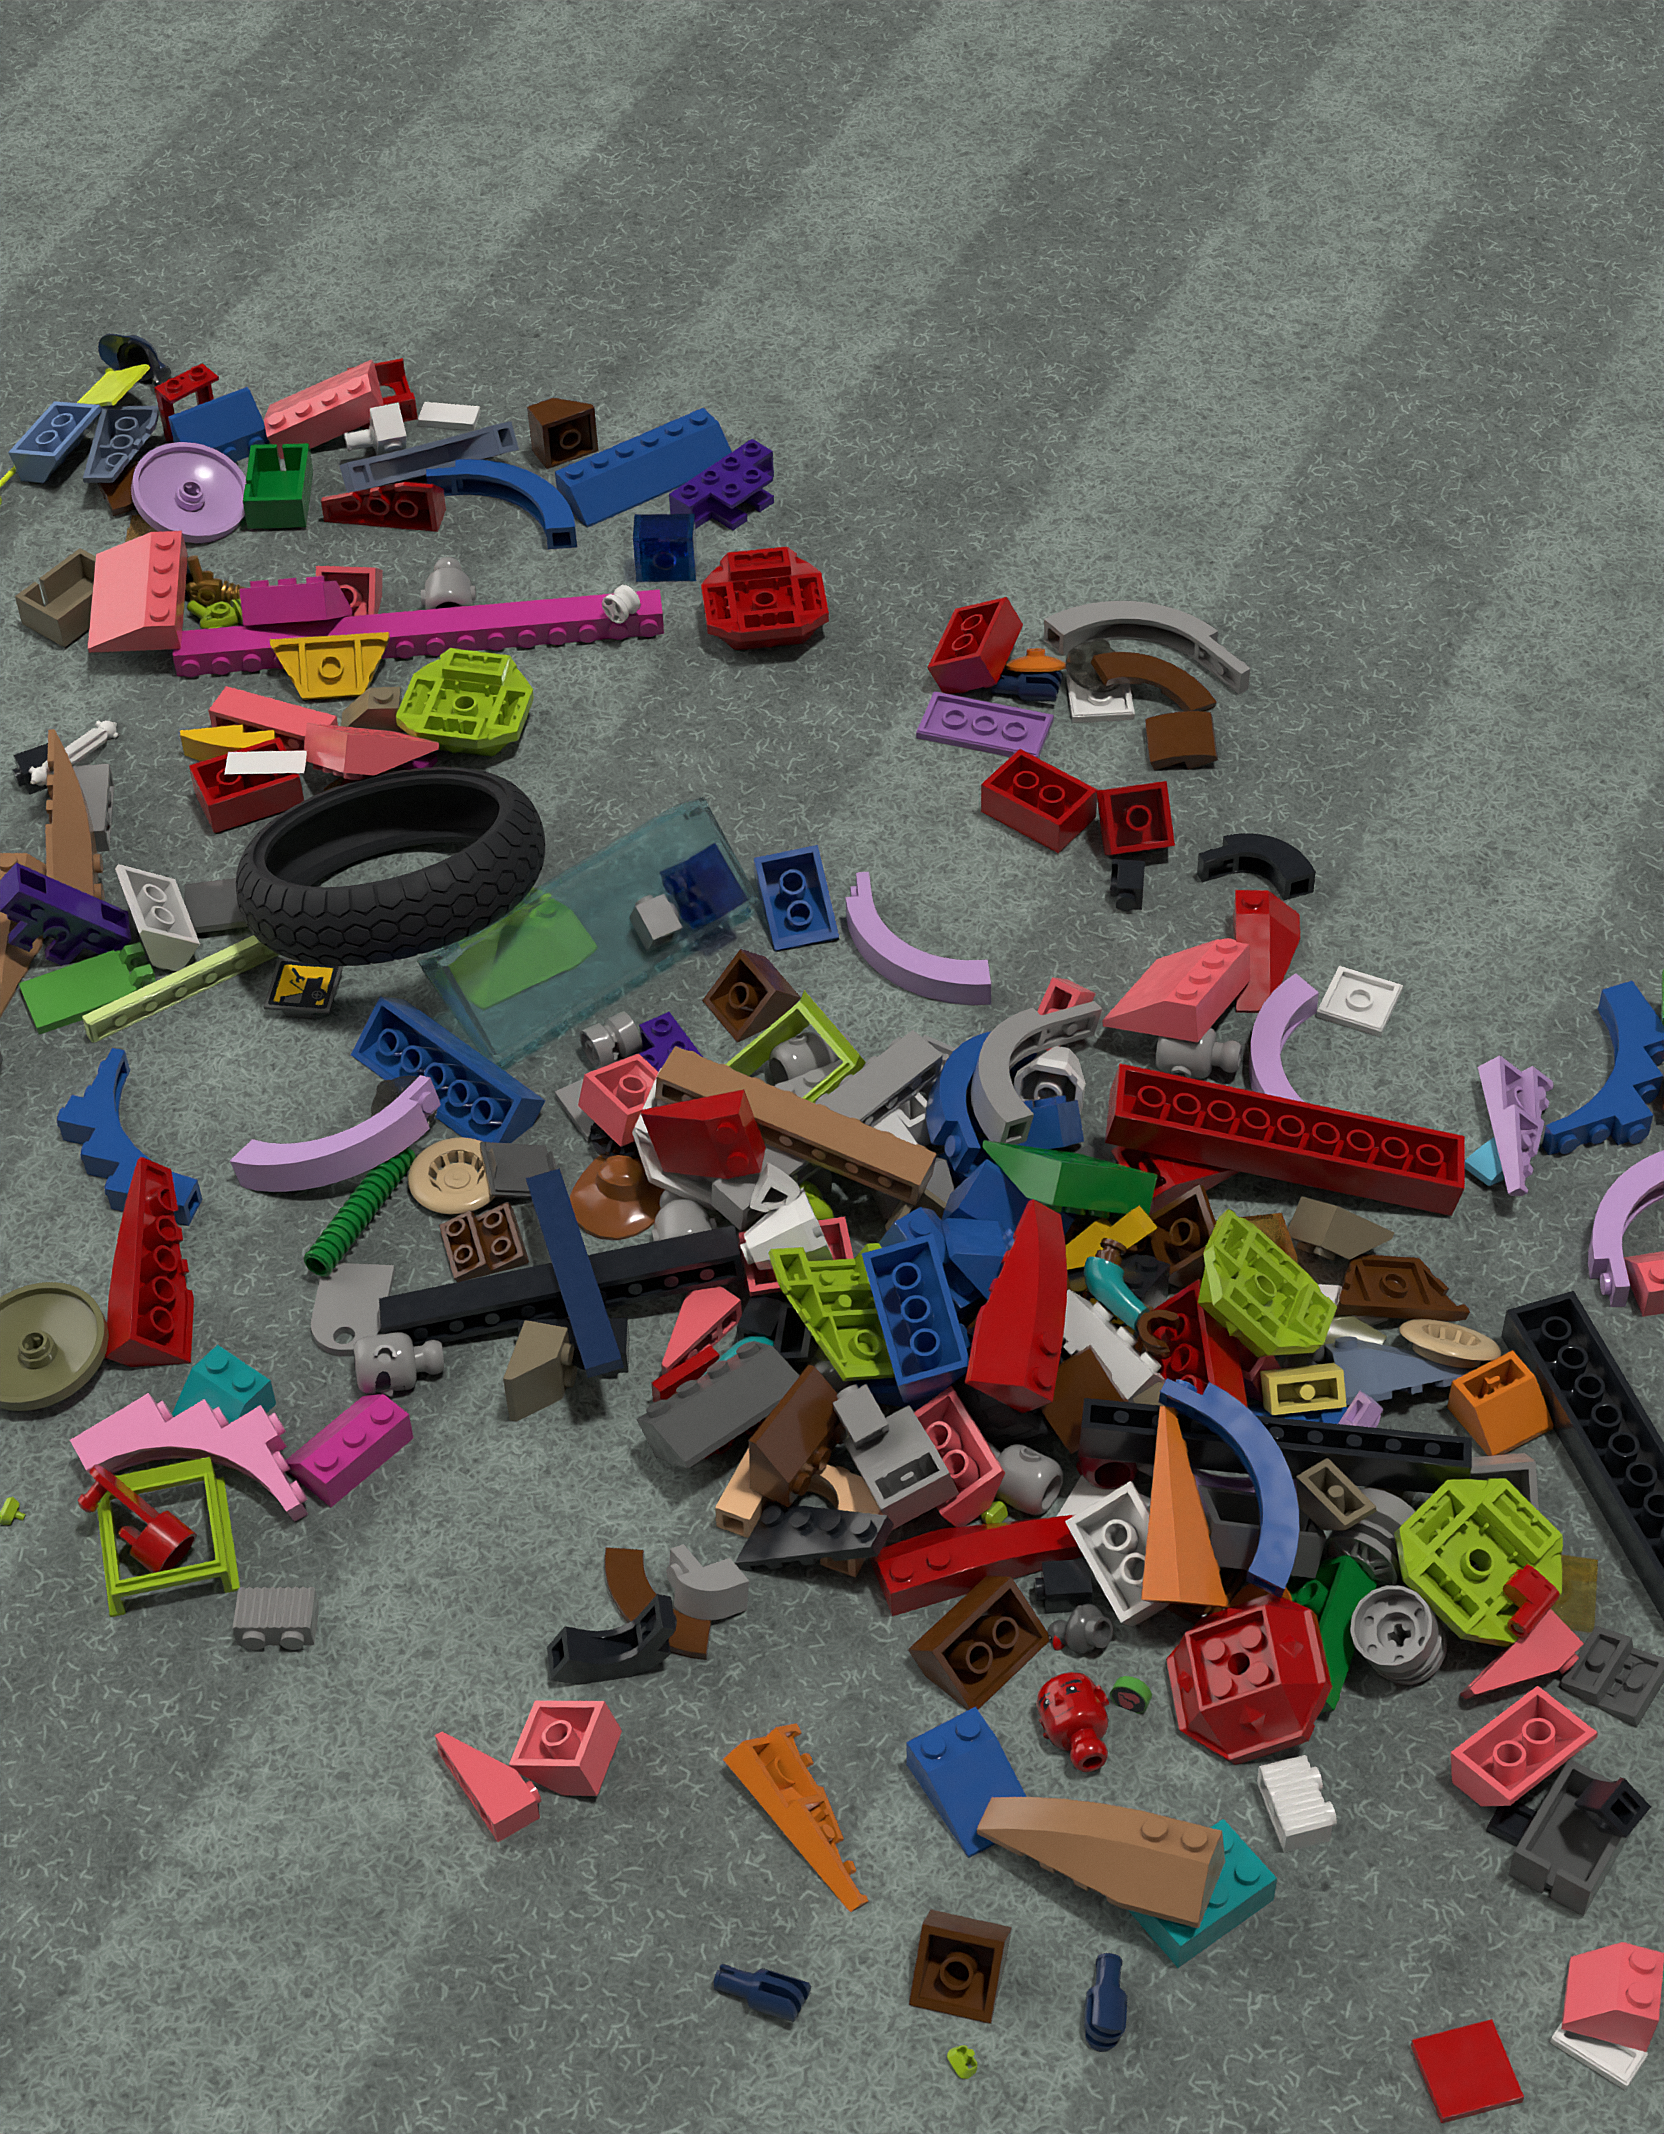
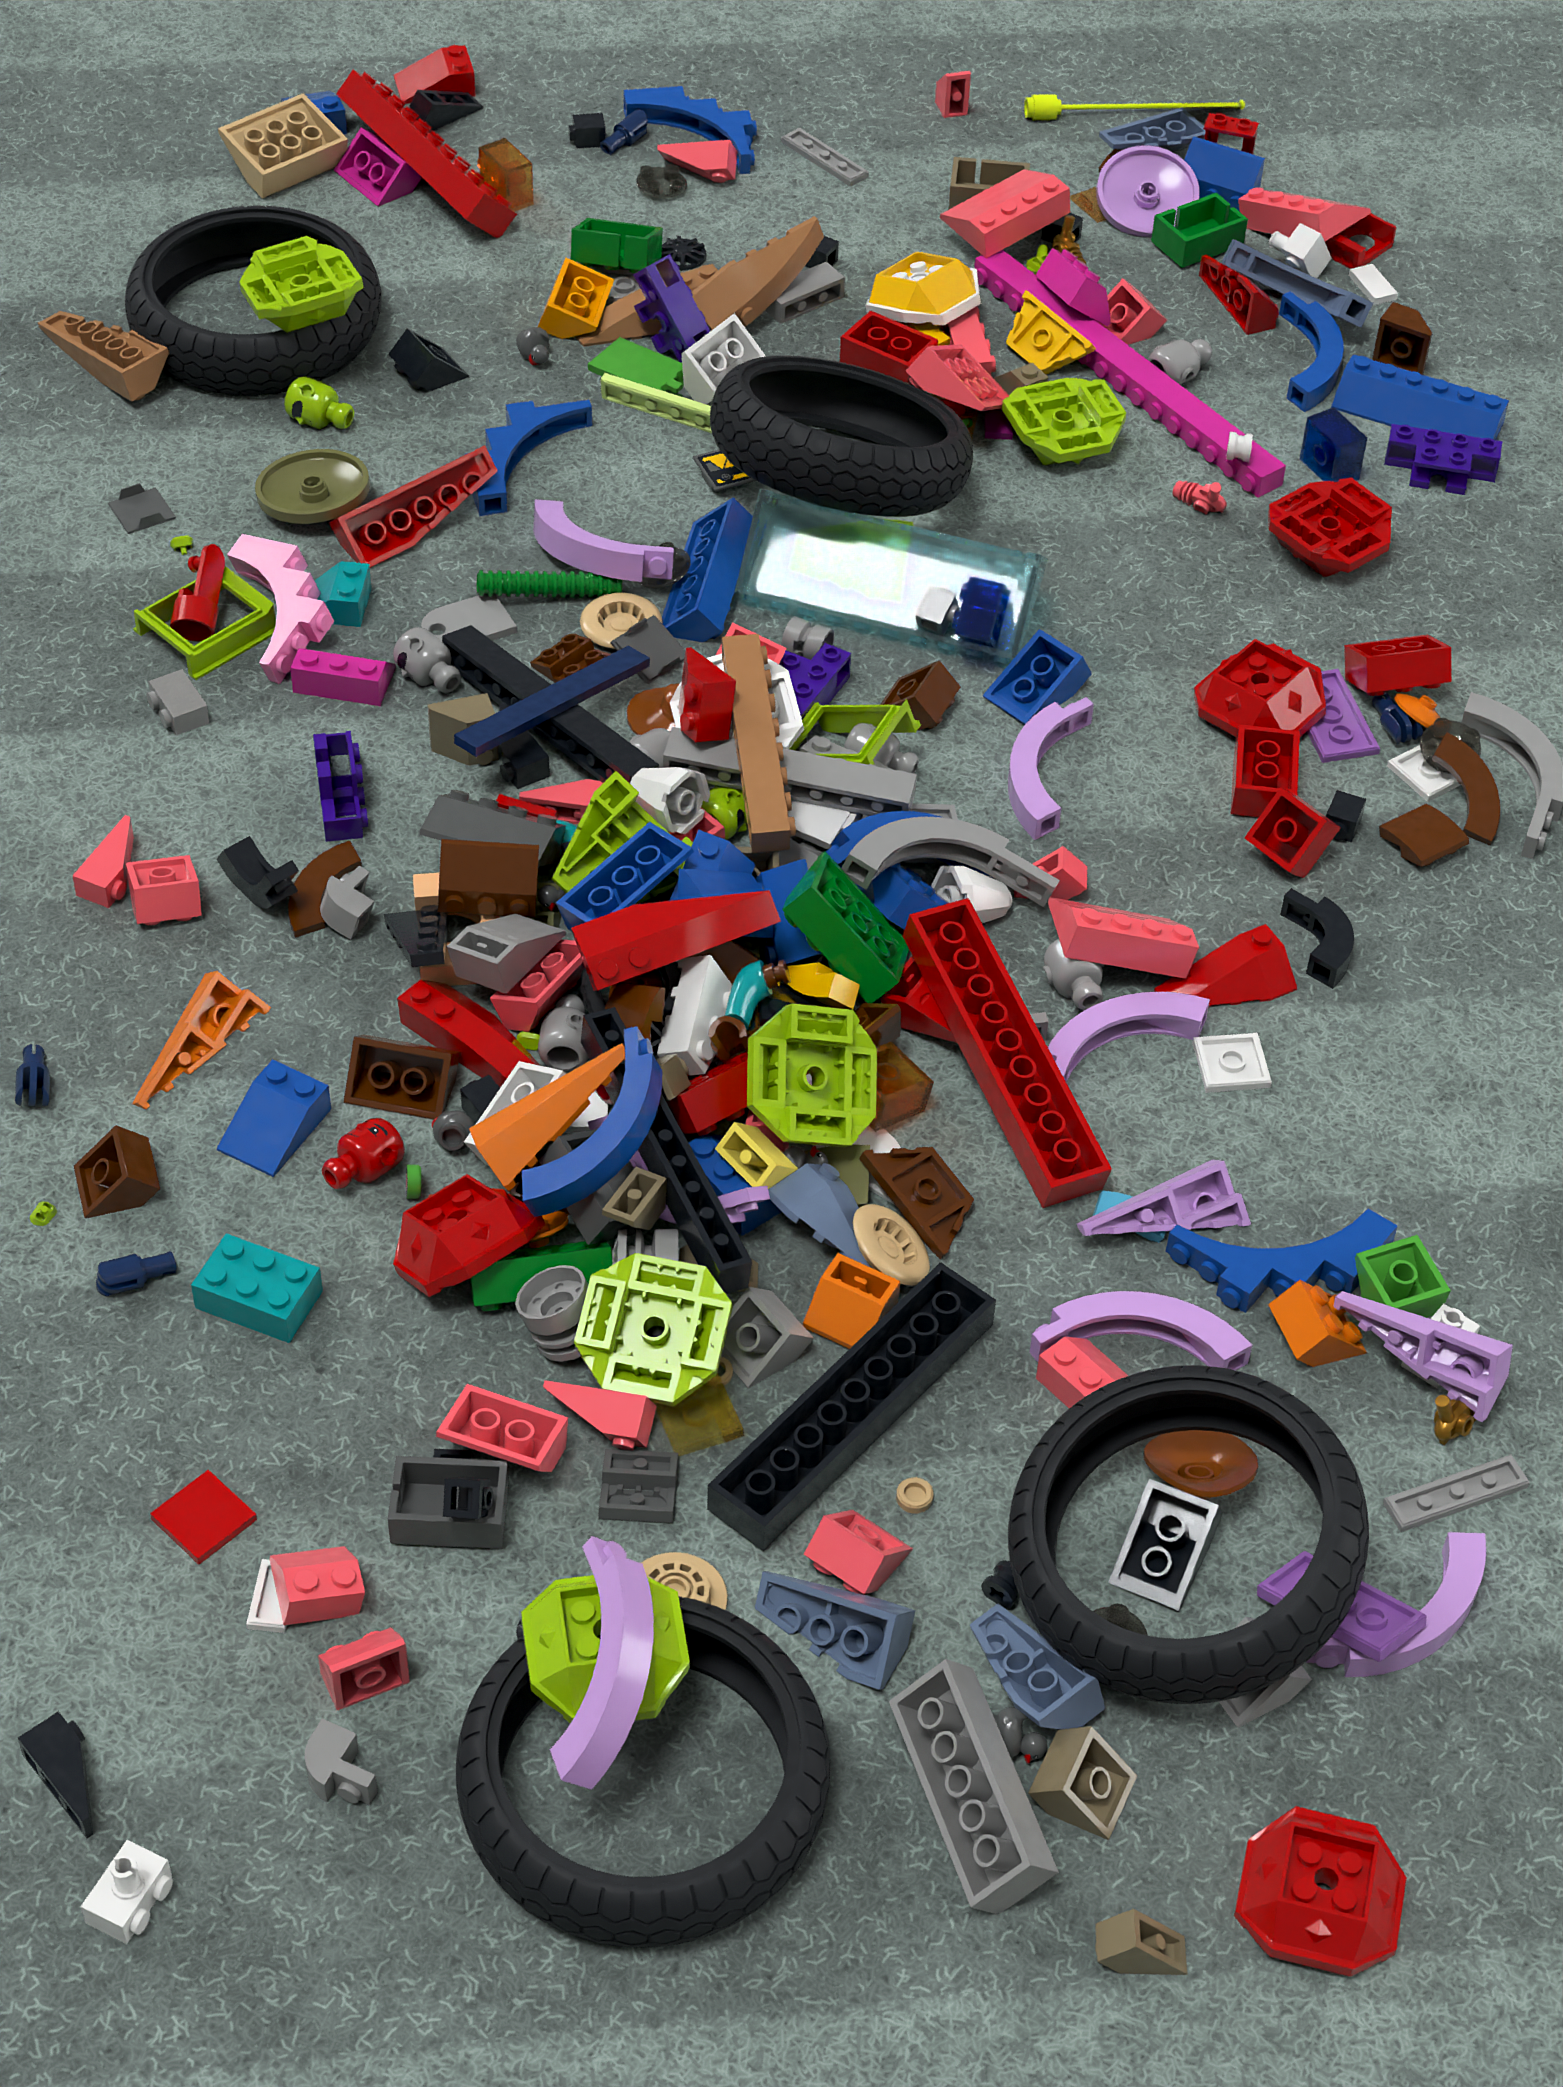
camera: 55 degrees right, 0 degrees up
(52, 439) = (1129, 104): medium blue slope -> none
(78, 749) = (851, 259): white wheel -> none
(129, 351) = (1260, 101): hair -> none
(195, 716) = (925, 290): none -> yellow piece
(266, 762) = (903, 341): white sticker -> none
(522, 1516) = (340, 793): none -> dark purple piece
(642, 667) = (1205, 497): none -> coral piece
(773, 1190) = (686, 754): white brick -> none
(860, 1414) = (520, 897): light grey brick -> none
(933, 755) = (1262, 689): none -> red piece
(1121, 1852) = (237, 1218): medium nougat wedge -> none
(1122, 771) = (1346, 812): none -> black brick
(1127, 883) = (1226, 865): black brick -> none
(1296, 1803) = (376, 1317): white brick -> none
(1333, 1231) = (948, 1127): dark tan slope -> none
(1533, 1596) = (644, 1380): red piece -> none

